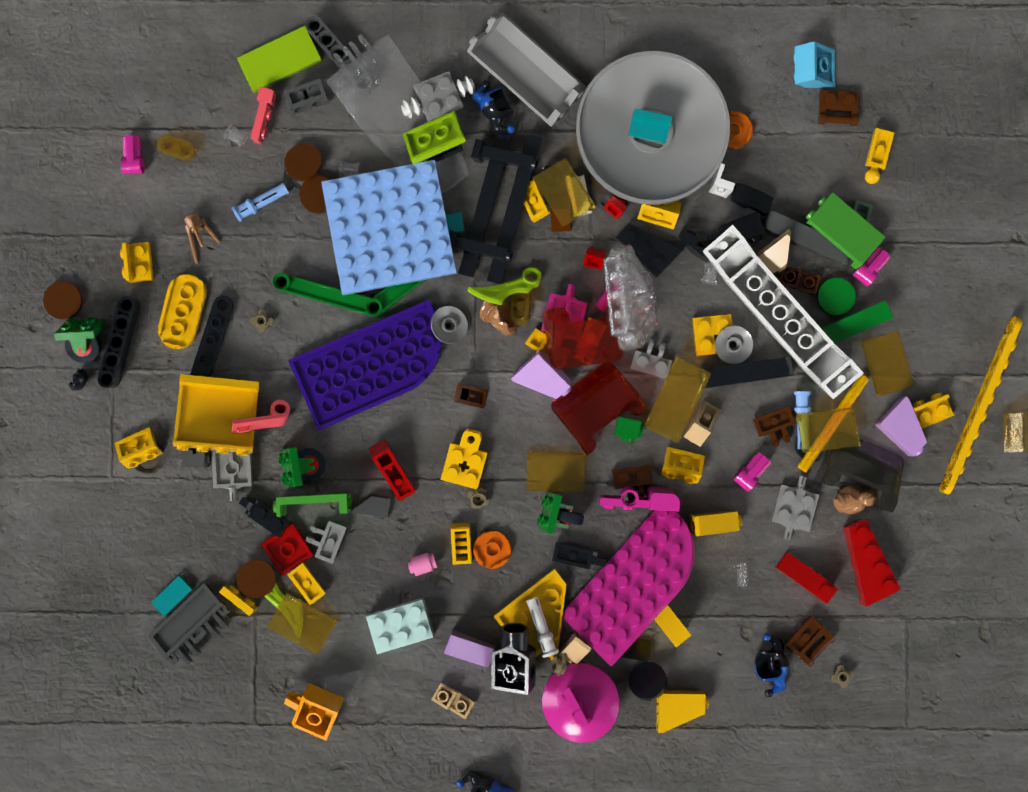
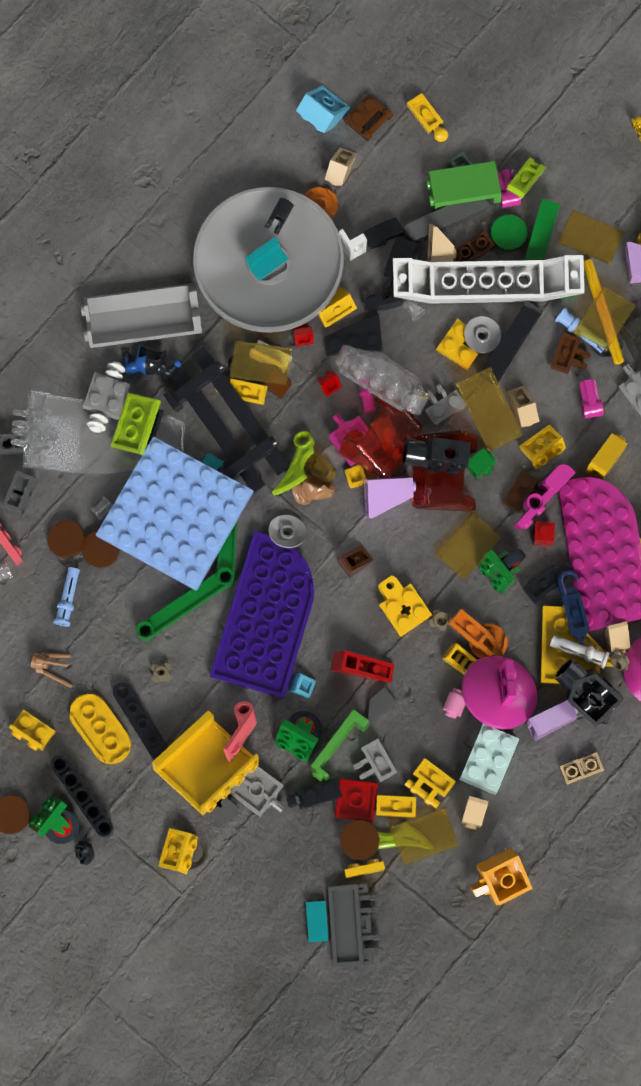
camera: 50 degrees left, 10 degrees down
(341, 435) = (301, 685): none -> medium azure slope
(349, 648) = (474, 812): none -> tan slope
(351, 594) = (432, 777): none -> yellow plate
(457, 592) = (499, 692): none -> dark pink bracket
(488, 532) = (473, 631): none -> orange hinge
(571, 594) = (573, 607): none -> dark blue plate
(599, 387) = (437, 454): none -> black brick
(612, 523) = (544, 533): none -> red brick
(698, 105) = (280, 212): none -> black hinge
(778, 119) = (340, 166): none -> tan slope
(892, 273) = (526, 177): none -> lime plate

